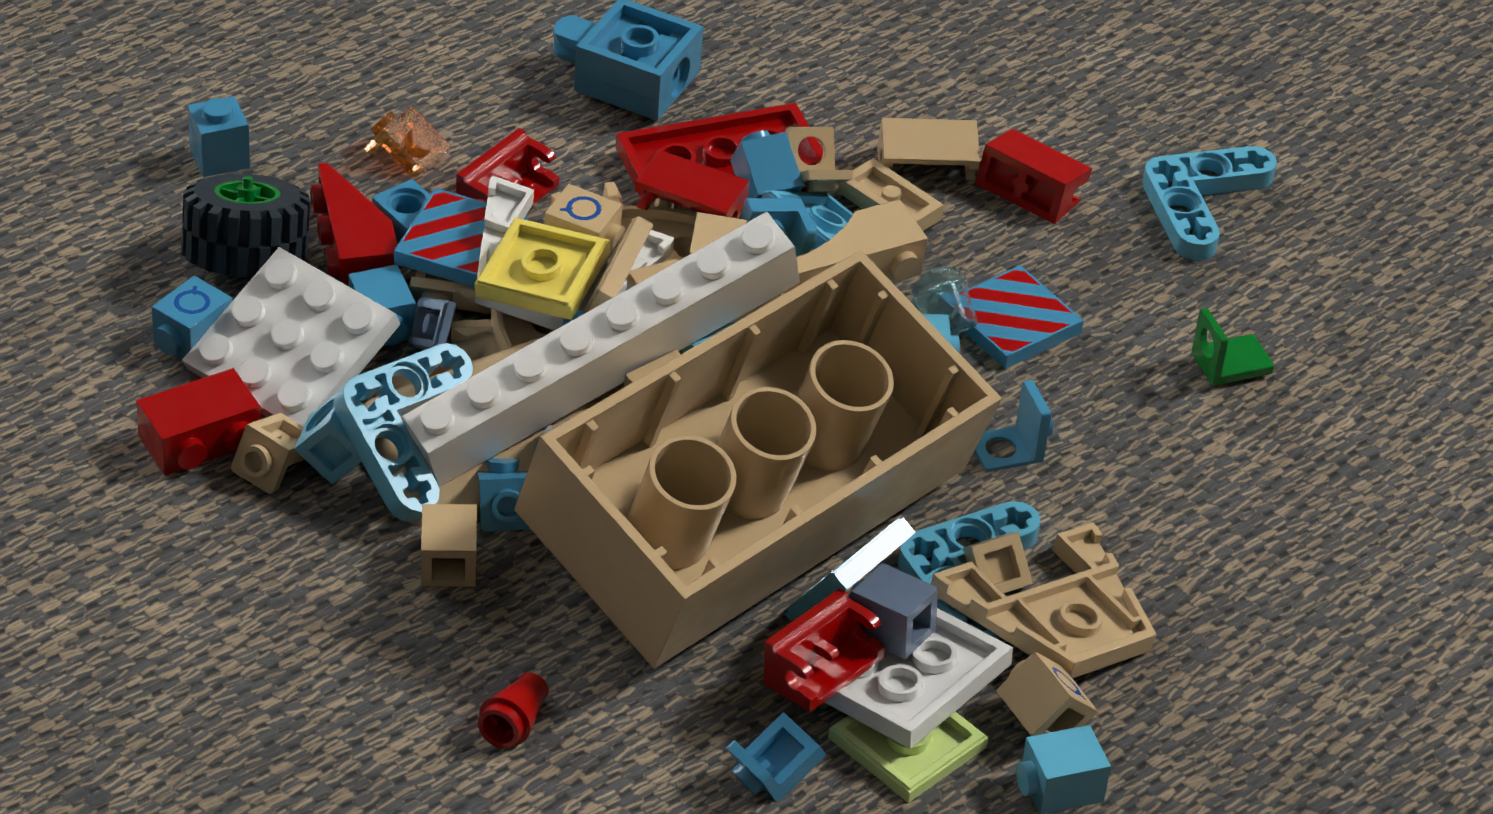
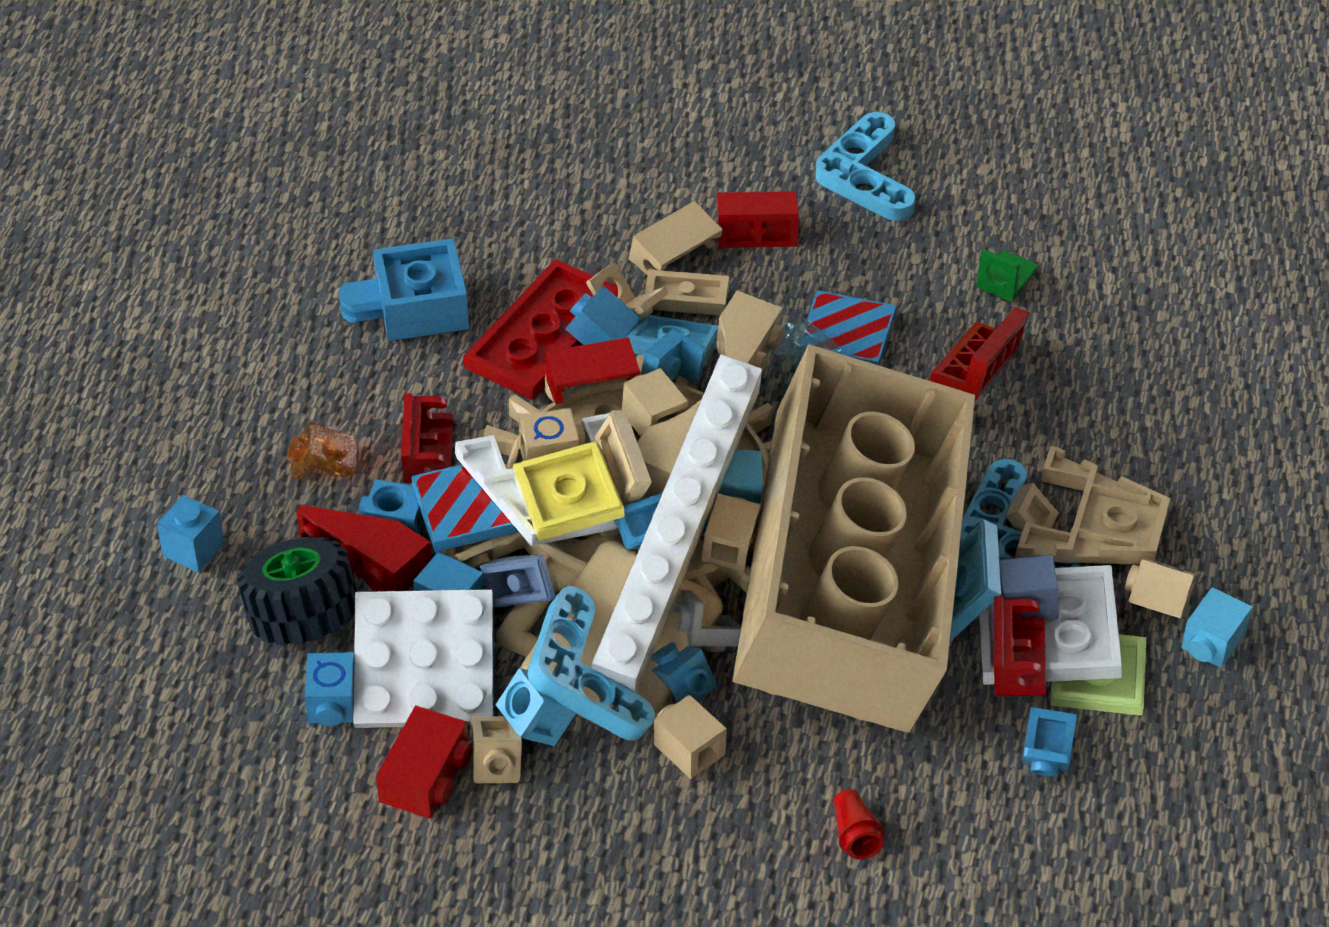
camera: 35 degrees left, 5 degrees up
(1099, 398) = (981, 354): none -> red fence

